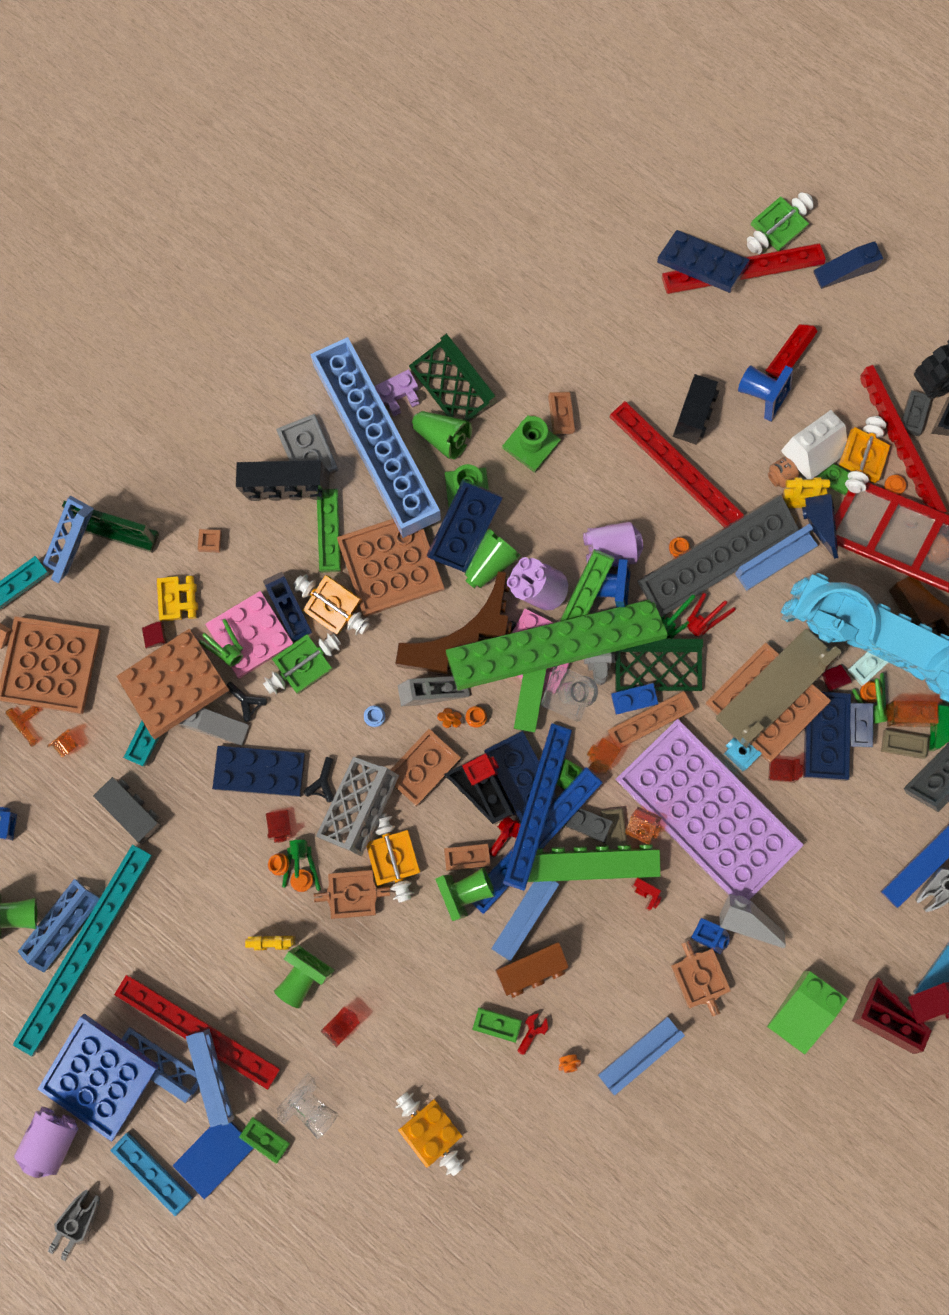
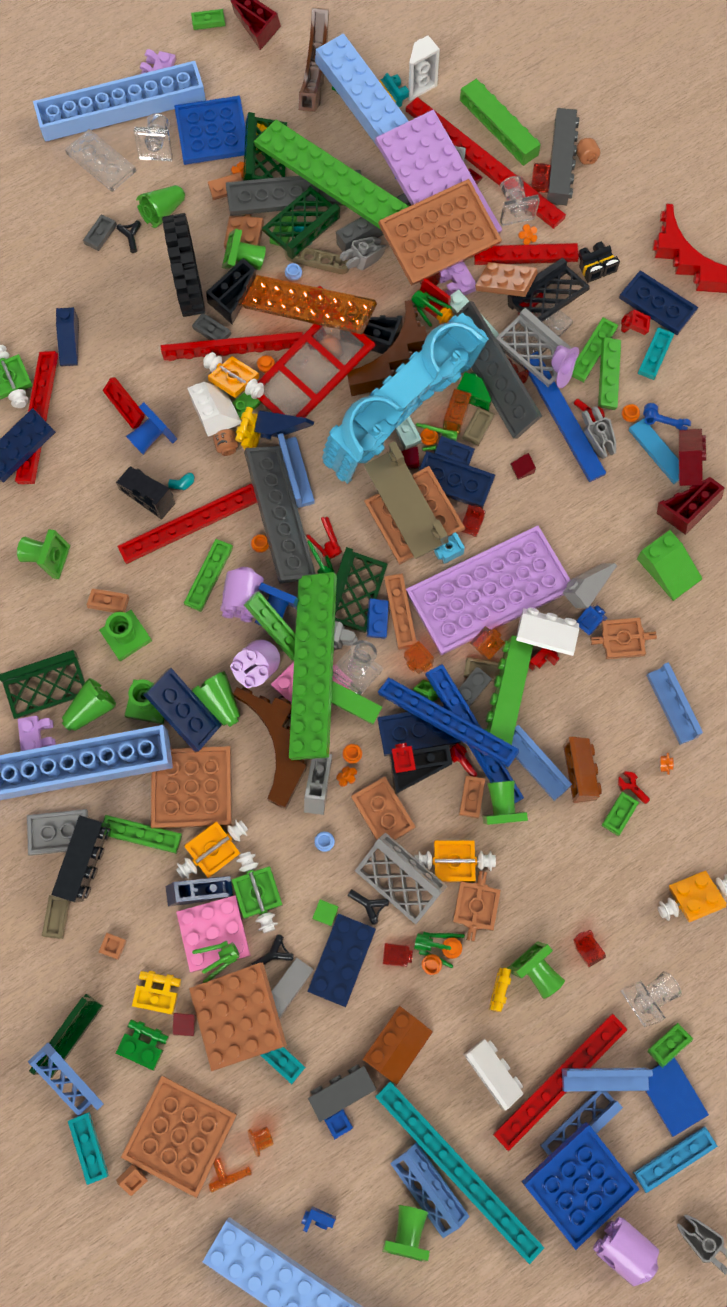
camera: 70 degrees left, 5 degrees down
(98, 817) = (338, 1124): none -> blue tile
(117, 602) = (139, 1051): none -> green plate
(184, 958) = (494, 1074): none -> white slope
(188, 852) = (398, 1045): none -> dark orange slope
(219, 478) = (55, 917): none -> dark tan tile
(301, 740) = (325, 913): none -> bright green tile
(591, 335) = (48, 554): none -> bright green plant
(625, 505) = (208, 575): none -> bright green tile
(676, 888) = (548, 631): none -> white slope
(720, 444) = (182, 484): none -> teal arm
(871, 809) = (523, 466): none -> dark red slope

